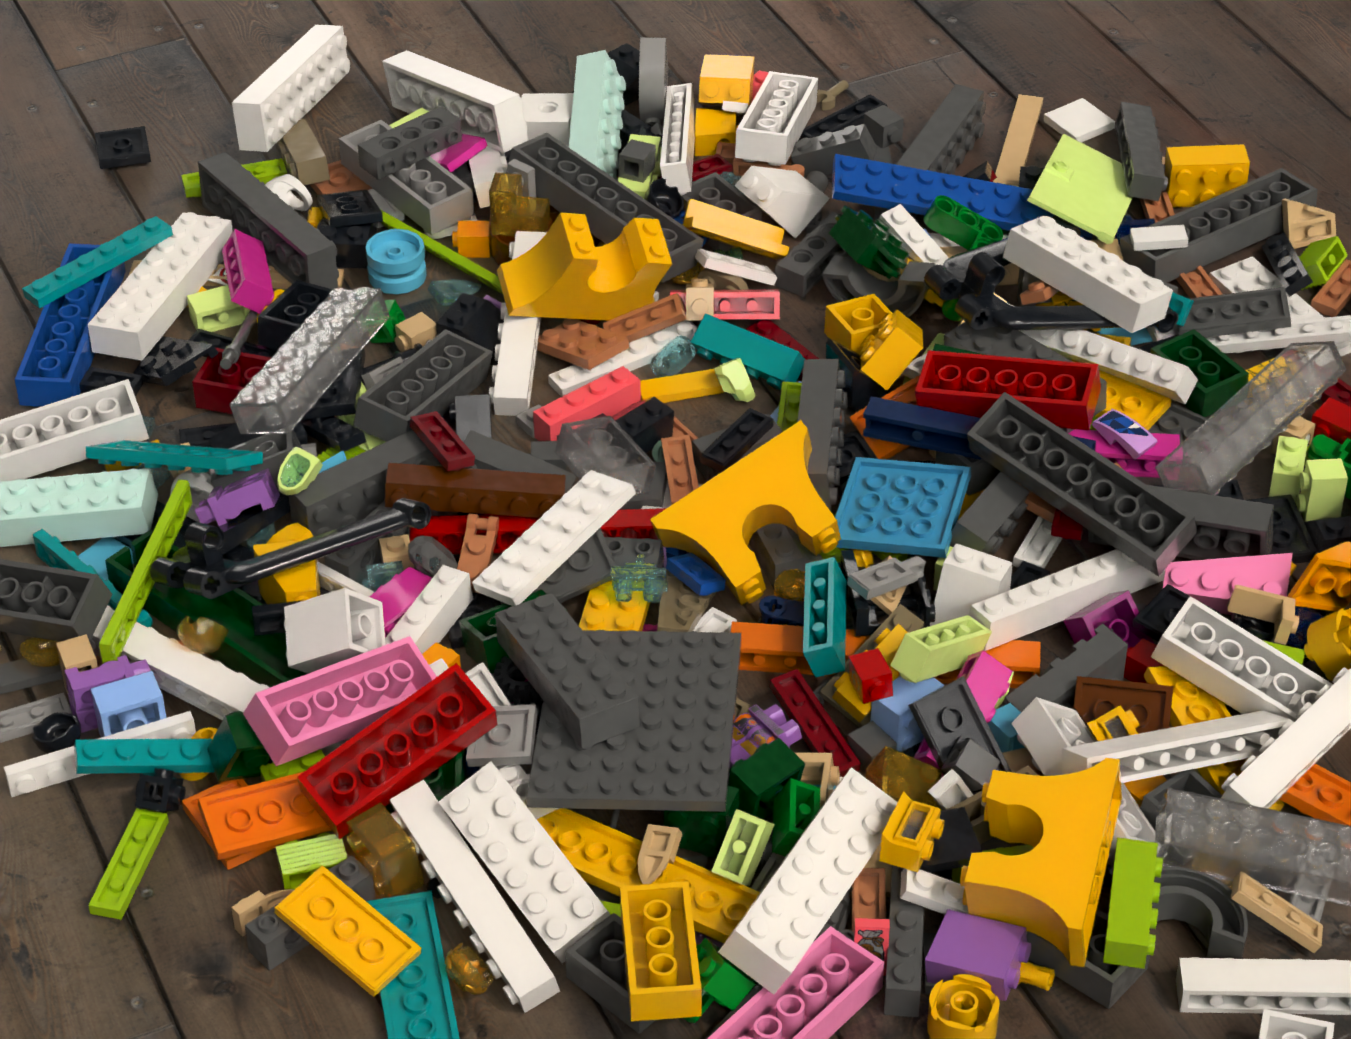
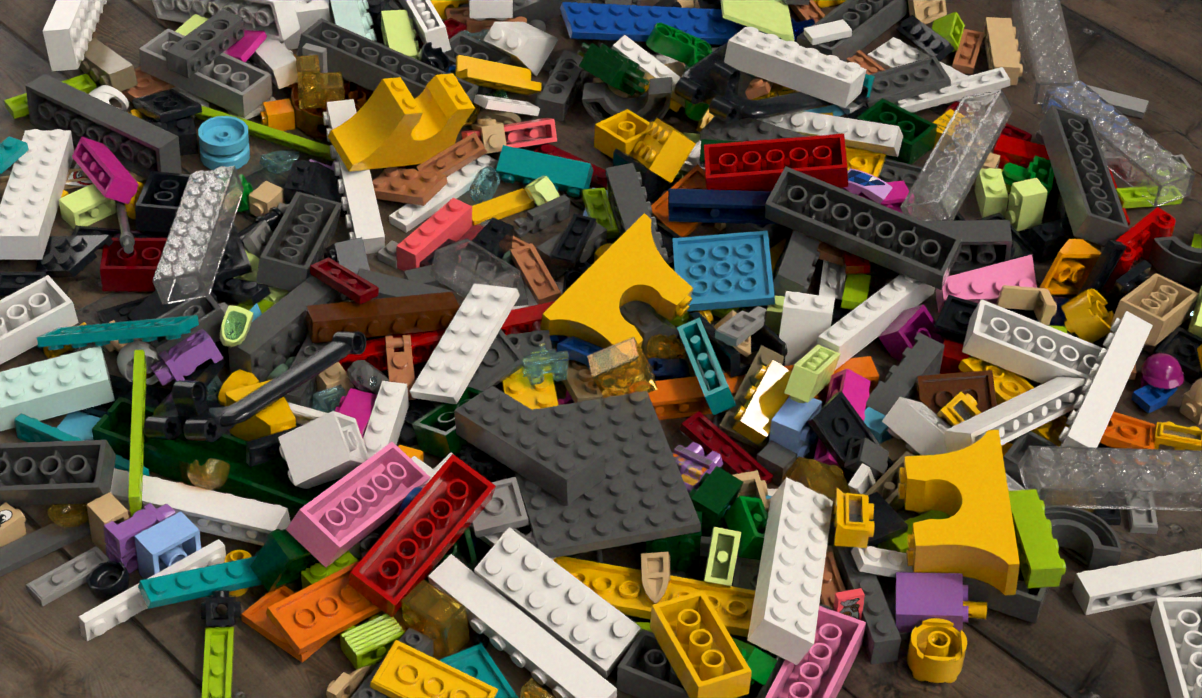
camera: 20 degrees left, 0 degrees up
(637, 160) = (401, 31): dark grey brick -> none
(720, 602) = (622, 369): none -> clear yellow brick
(724, 405) = (543, 216): none -> dark grey plate
(870, 676) = (768, 404): red brick -> none
(1061, 556) = (855, 290): none -> lime tile
(1277, 912) = (1130, 524): tan tile -> none

